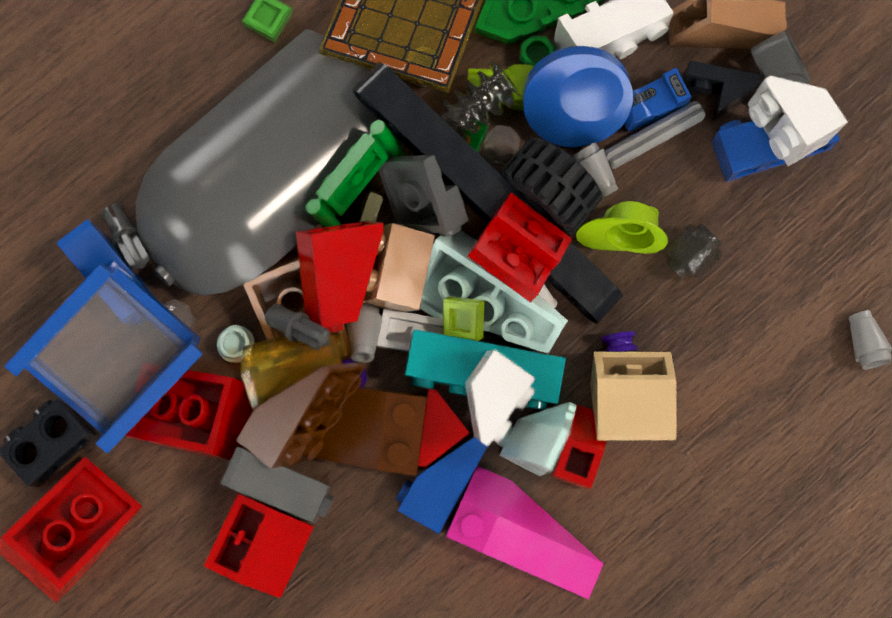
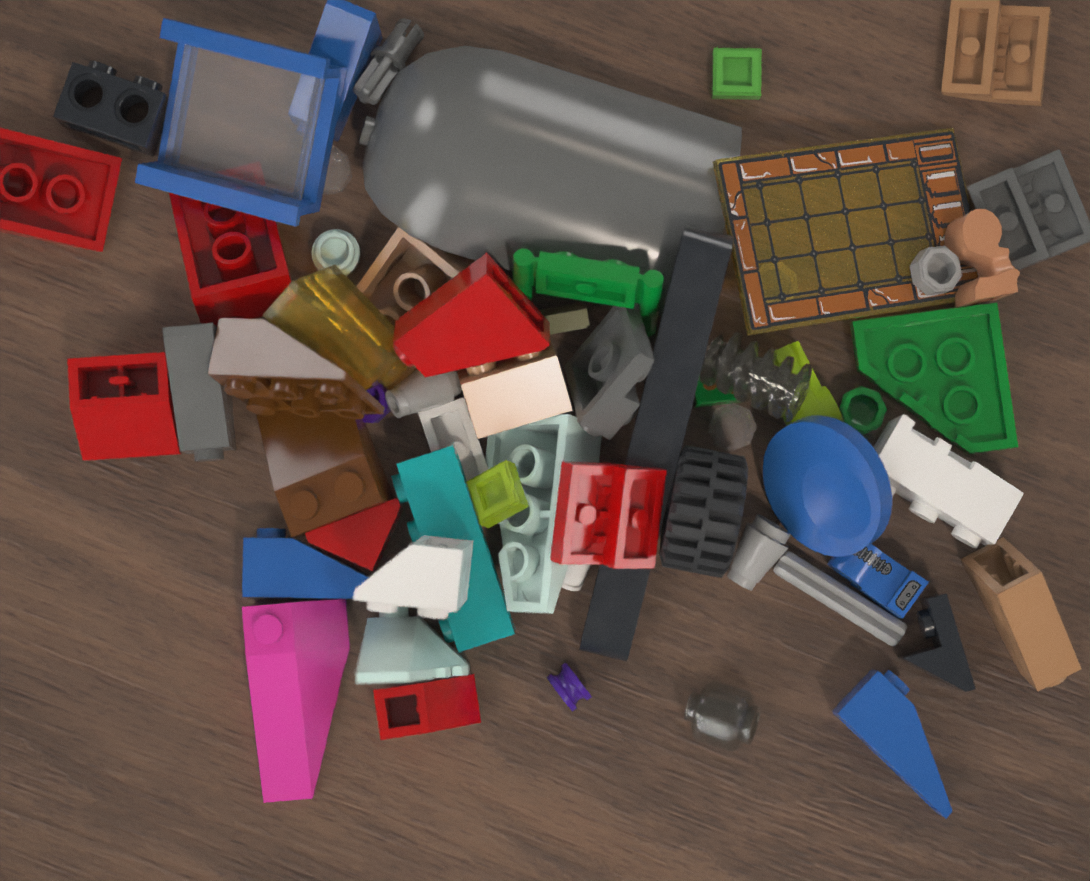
camera: 60 degrees right, 5 degrees up
(297, 326) = (381, 314): dark grey axle -> none
(625, 227) = (709, 623): lime piece -> none
(634, 395) = (513, 734): tan slope -> none
(780, 58) = (997, 708): dark grey piece -> none
(795, 117) = (933, 751): white slope -> none

